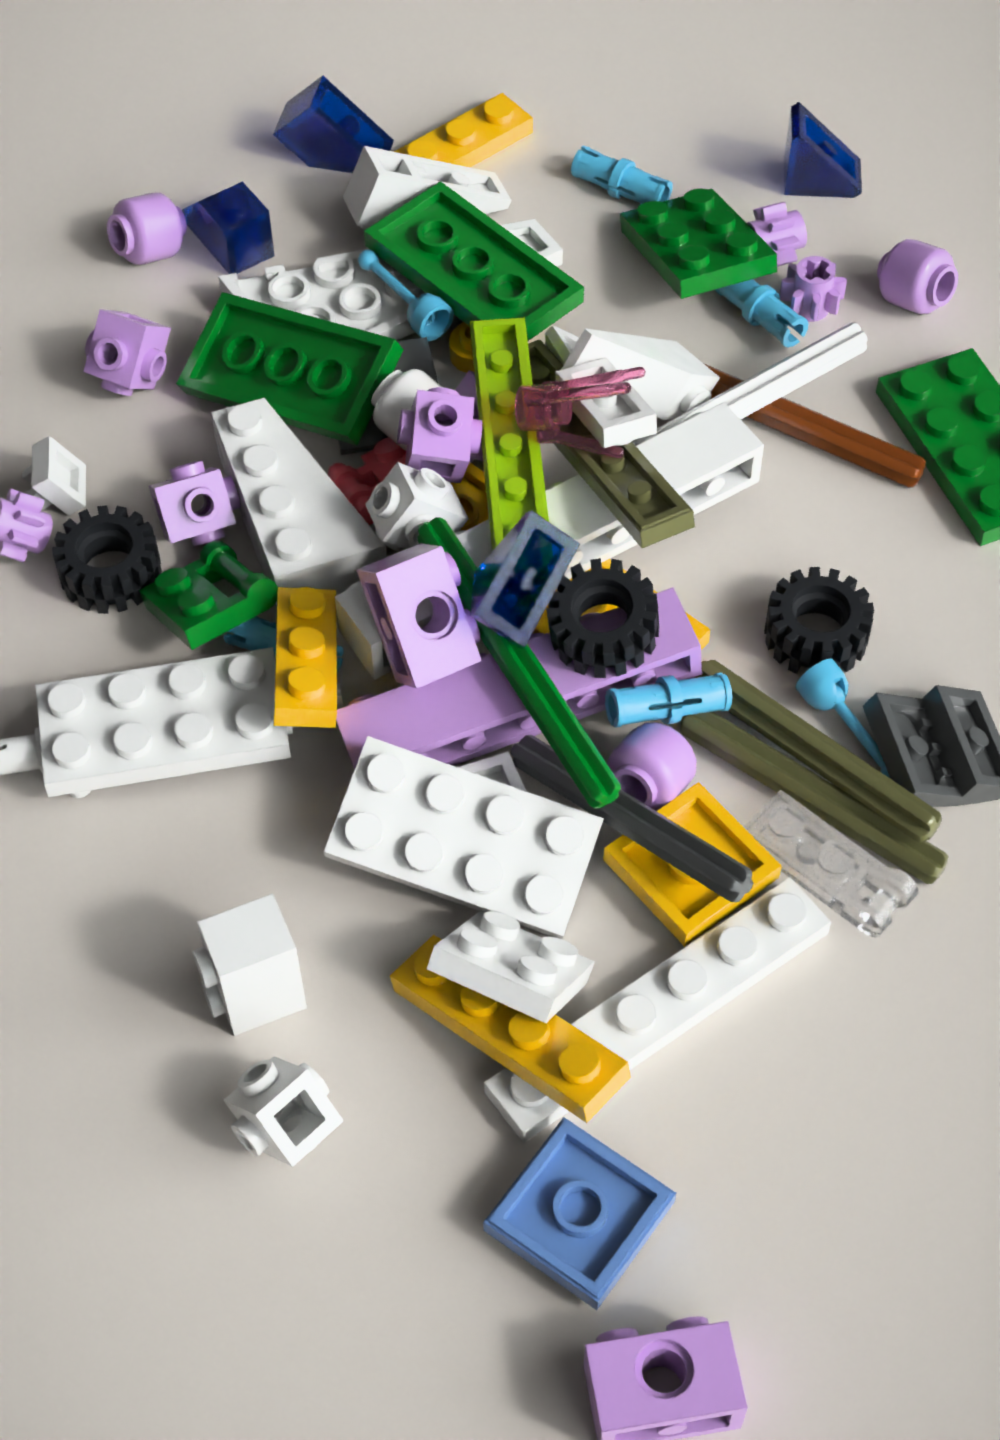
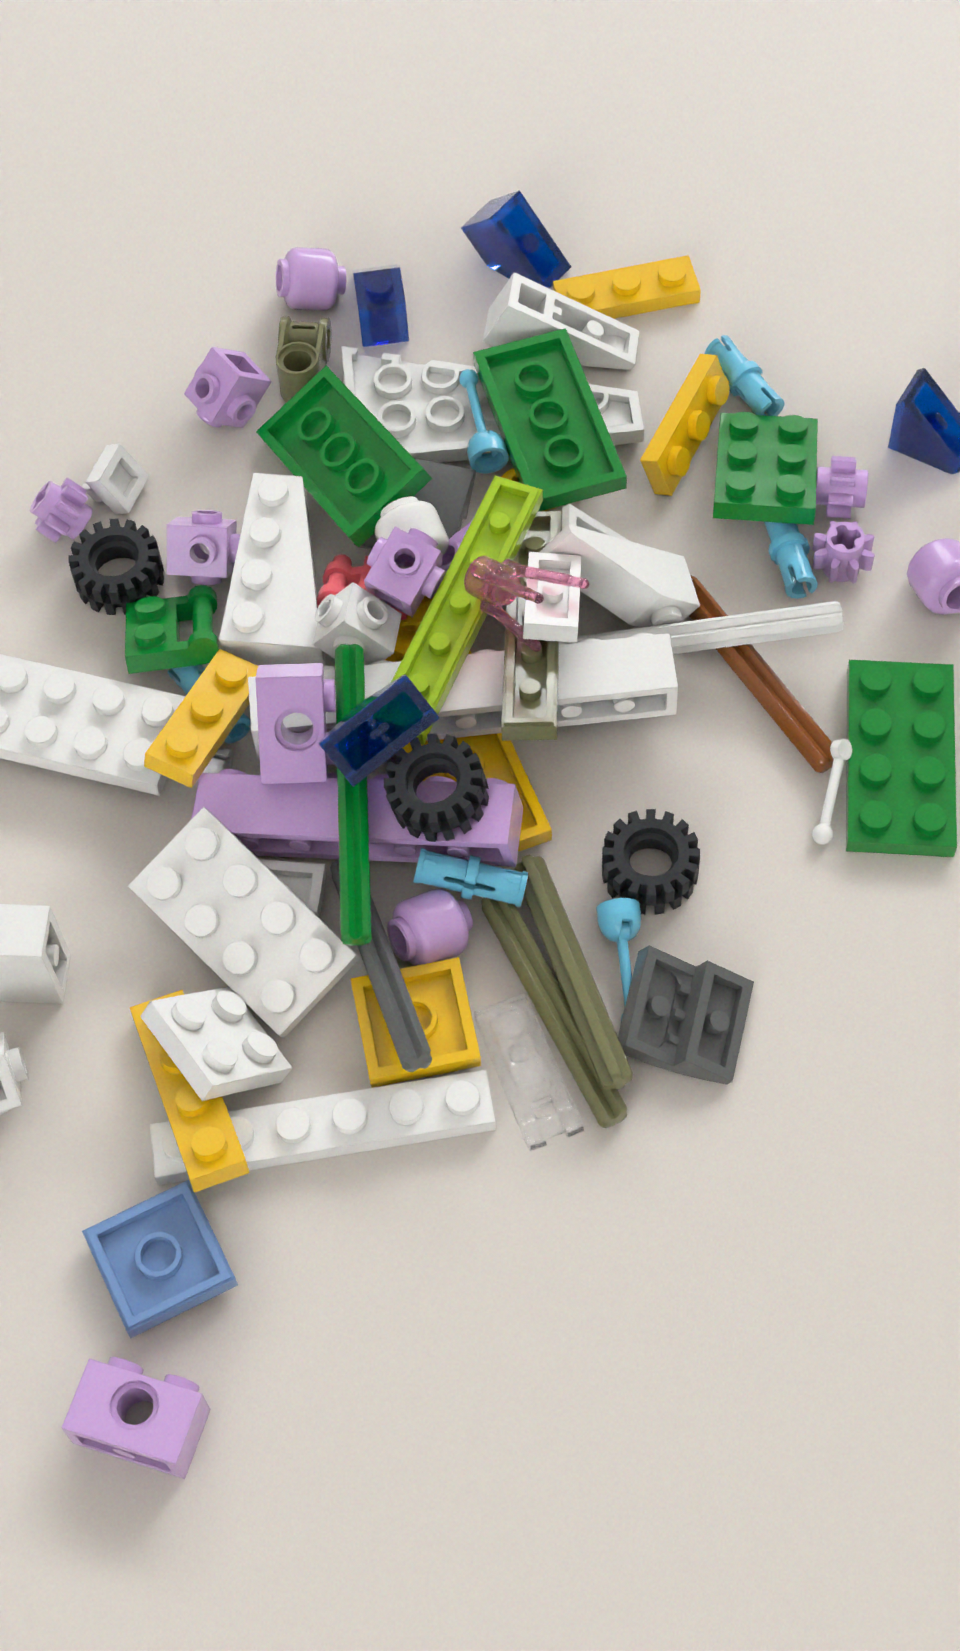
camera: 30 degrees right, 5 degrees up
(180, 300) = (301, 353): none -> olive piece
(599, 232) = (685, 425): none -> yellow plate
(953, 536) = (840, 750): none -> white hinge

